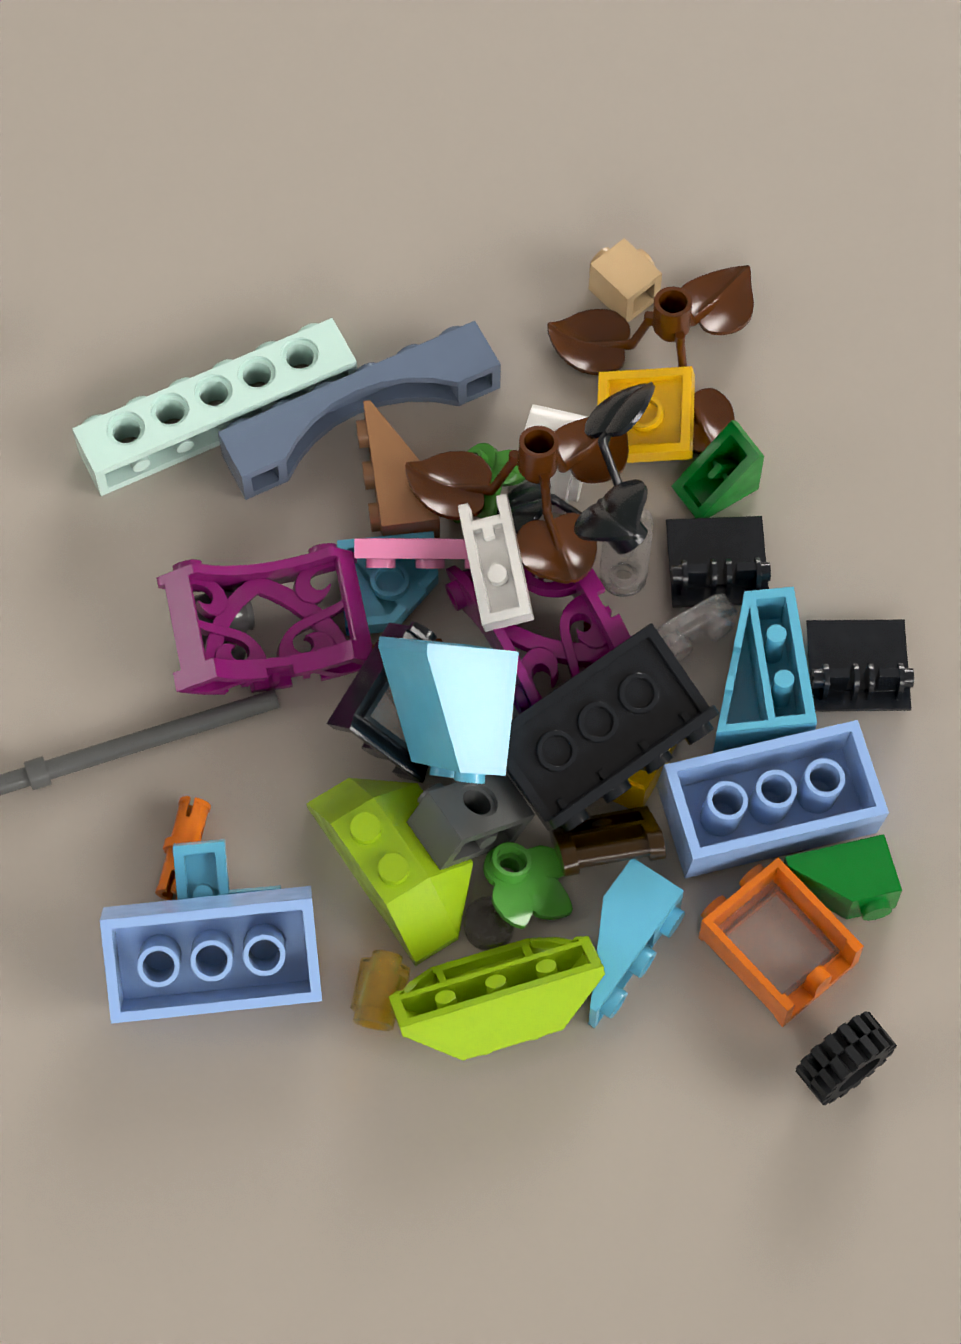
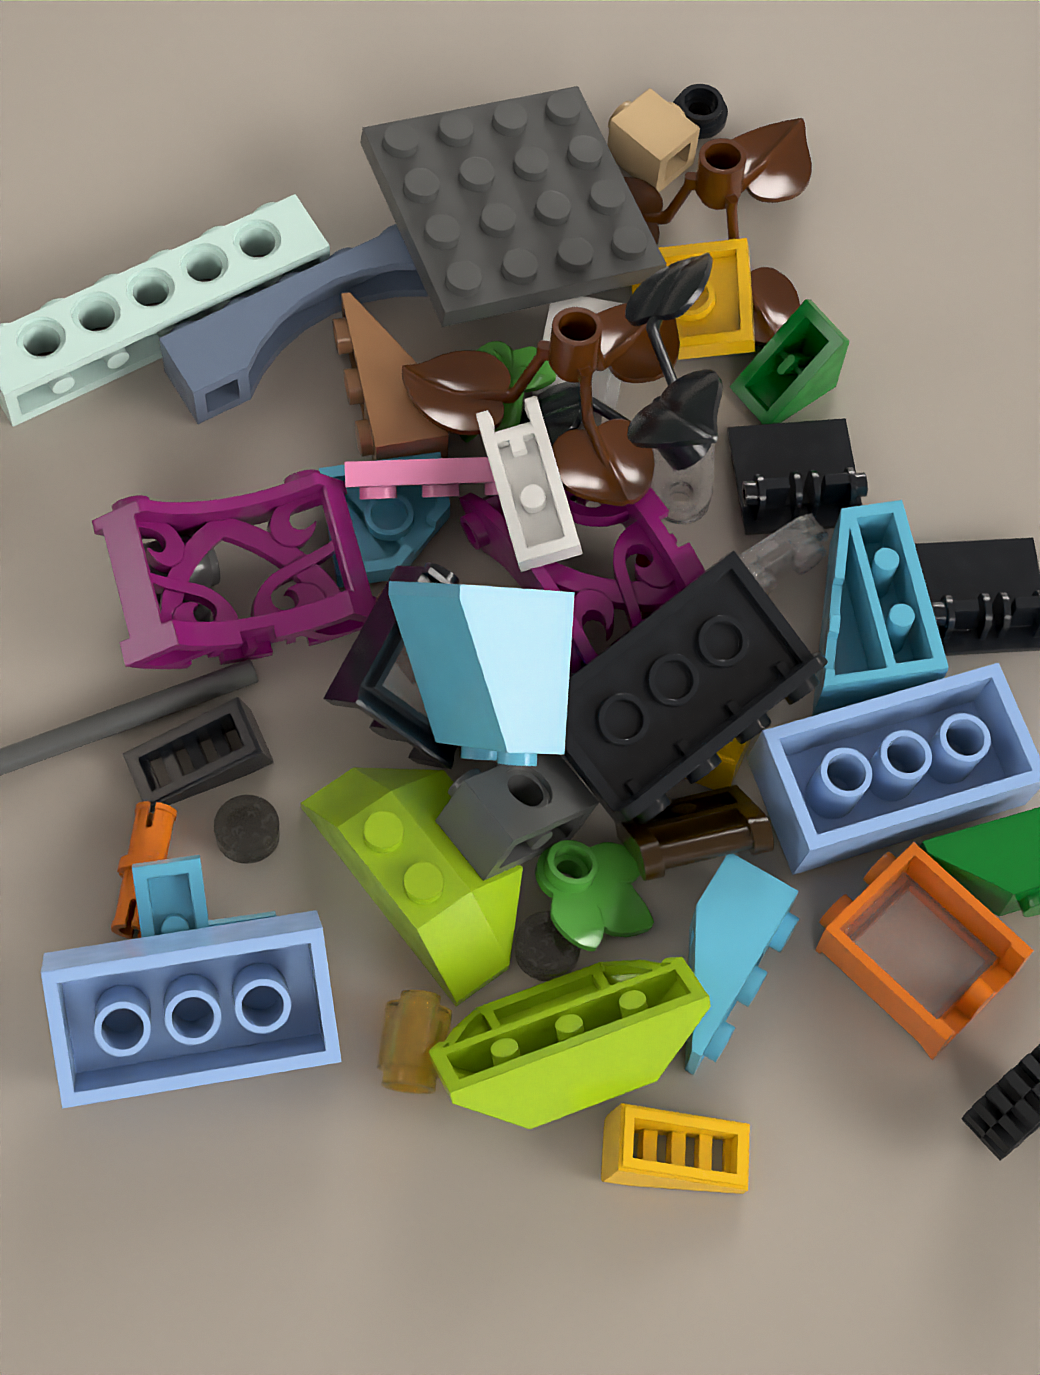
camera: 10 degrees left, 0 degrees up
(224, 746) = (189, 735): none -> black slope
(263, 821) = (247, 829): none -> clear smoke tile
(503, 332) = (511, 205): none -> dark grey plate
(550, 1097) = (645, 1171): none -> yellow slope
(669, 246) = (705, 101): none -> black plate

